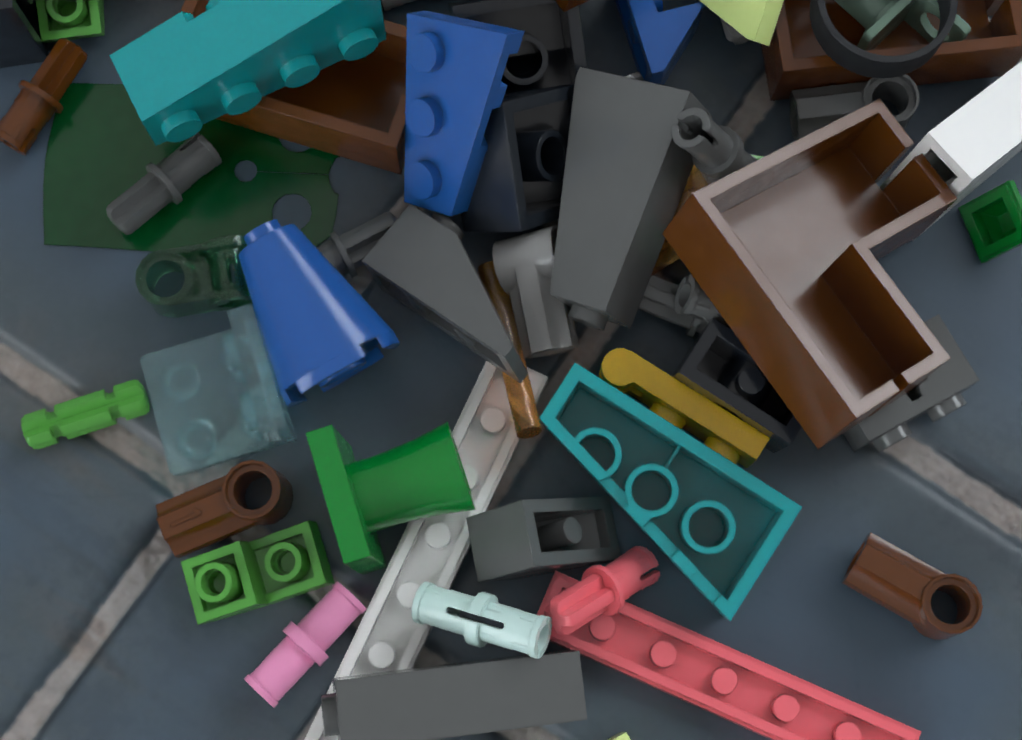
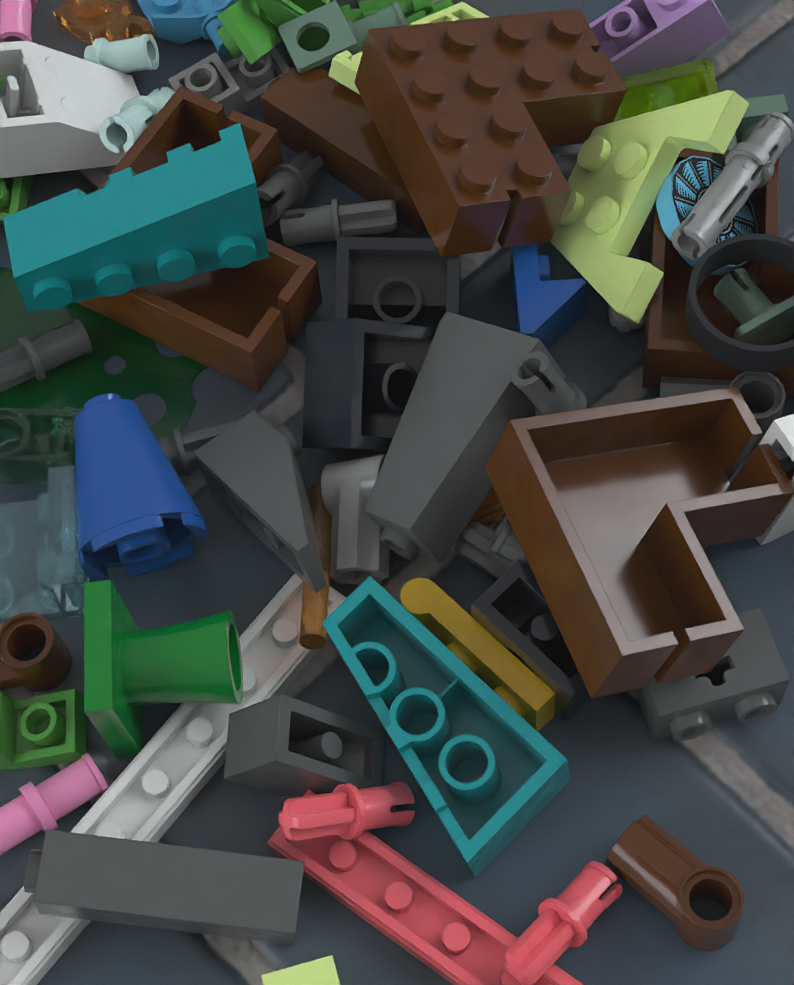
camera: 20 degrees right, 15 degrees down
(450, 93) = (307, 308): blue wing -> none
(521, 629) = (238, 822): light aqua pin -> none
(819, 648) = (562, 923): none -> coral axle

